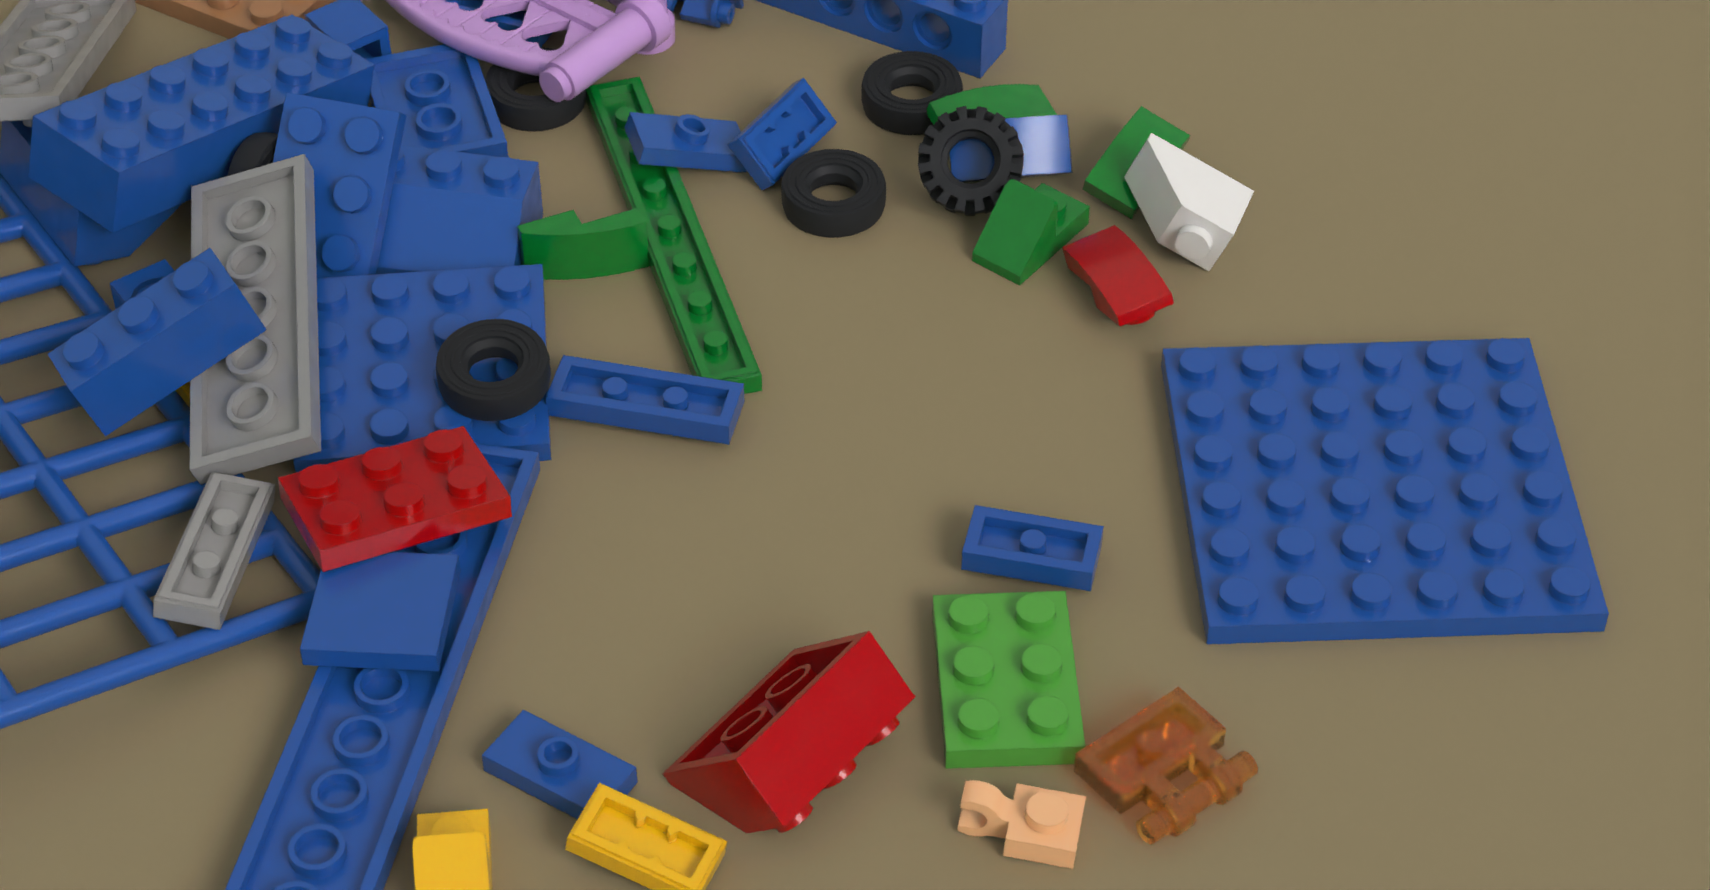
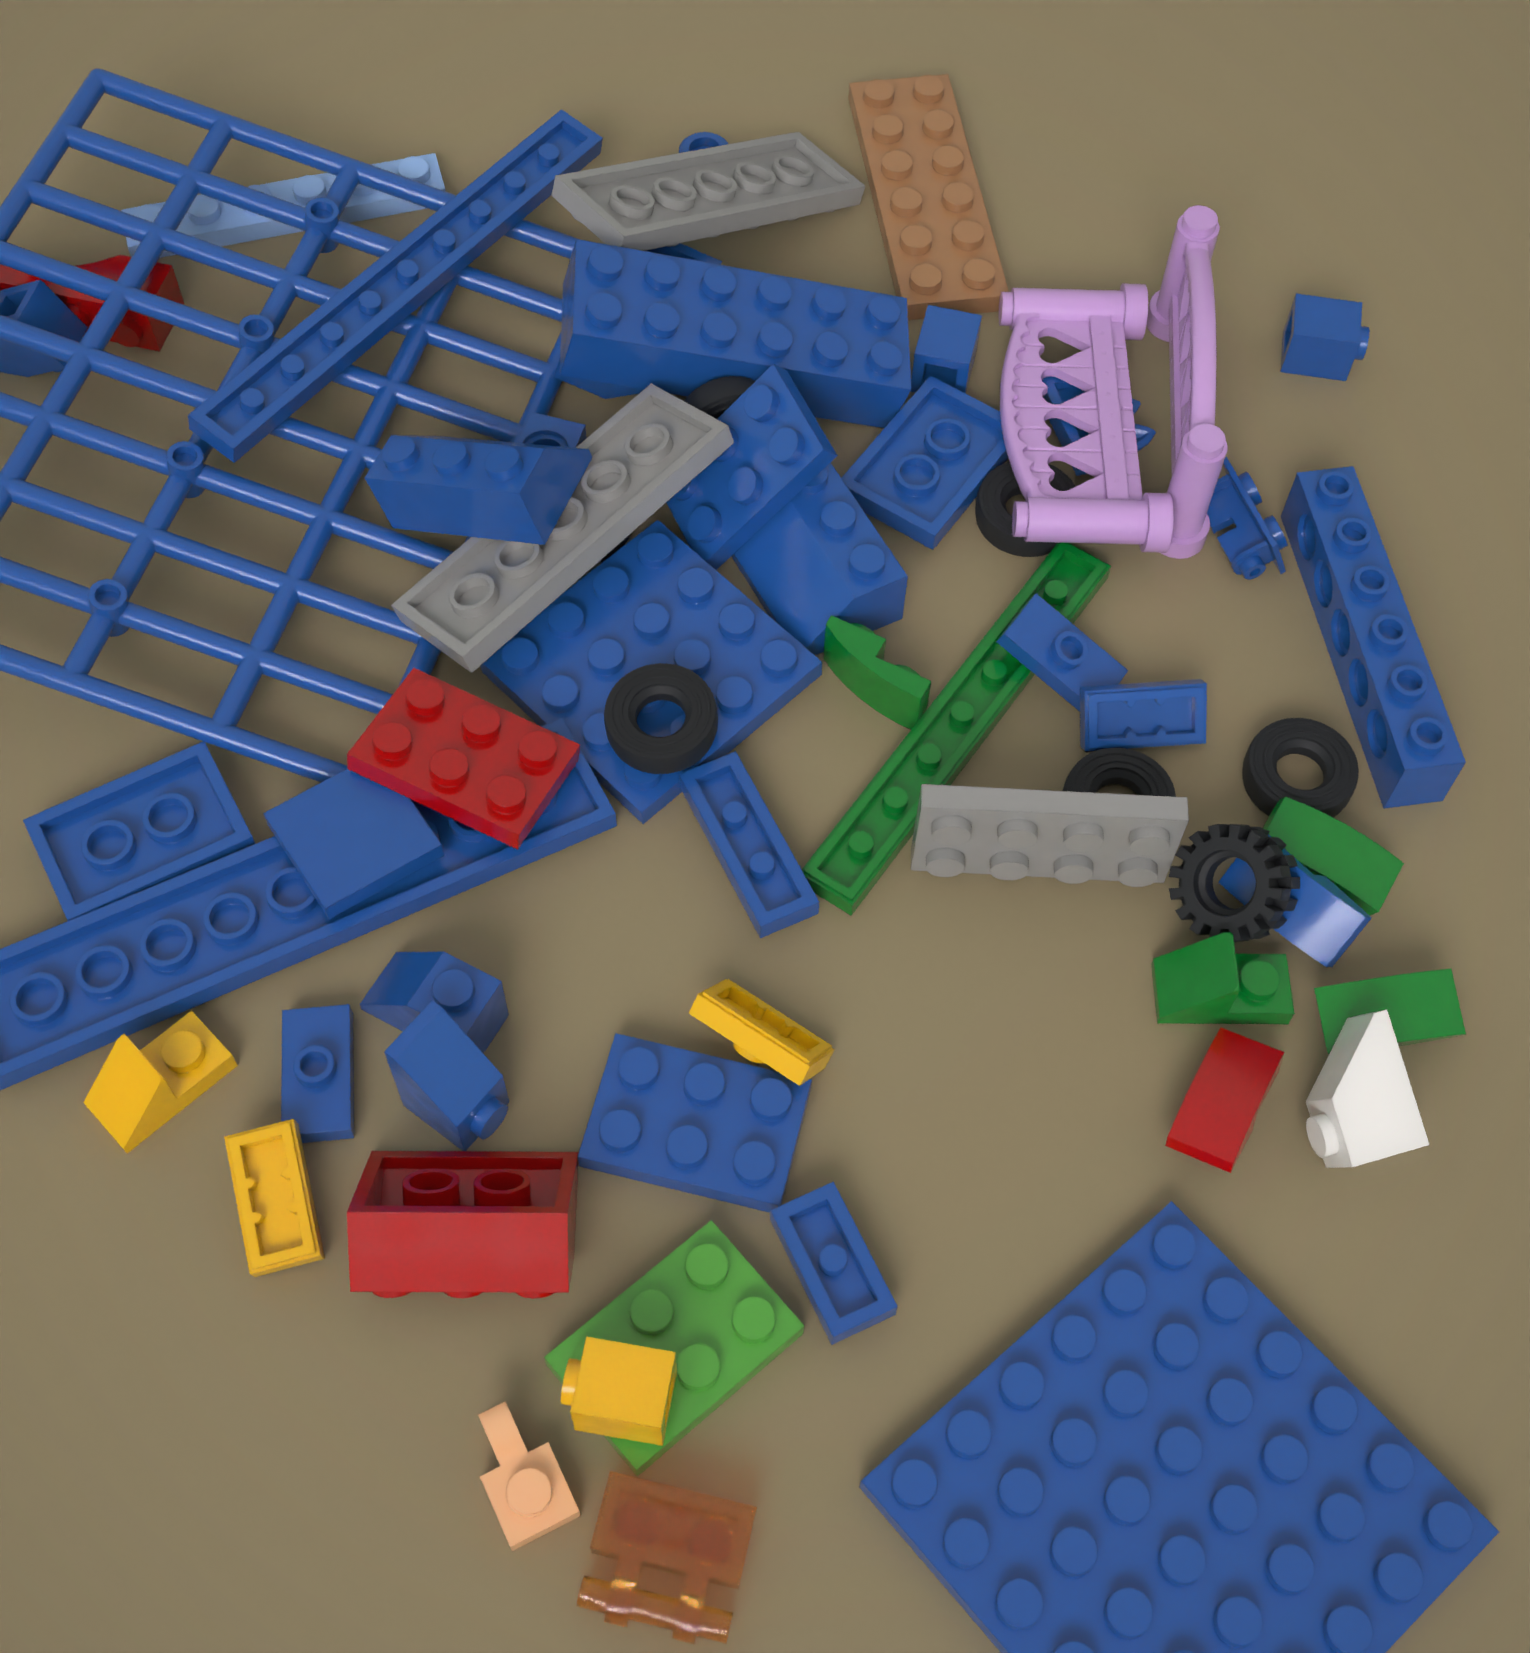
camera: 50 degrees right, 15 degrees up
(203, 764) = (138, 831): none -> blue plate
(214, 551) = (328, 682): light grey tile -> none
(582, 650) = (464, 992): none -> blue slope
(669, 669) = (447, 1078): none -> blue slope
(814, 481) = (761, 1031): none -> yellow plate
(829, 226) = (1047, 834): none -> light grey plate
(841, 566) = (695, 1123): none -> blue plate
(1031, 692) = (620, 1390): none -> yellow brick

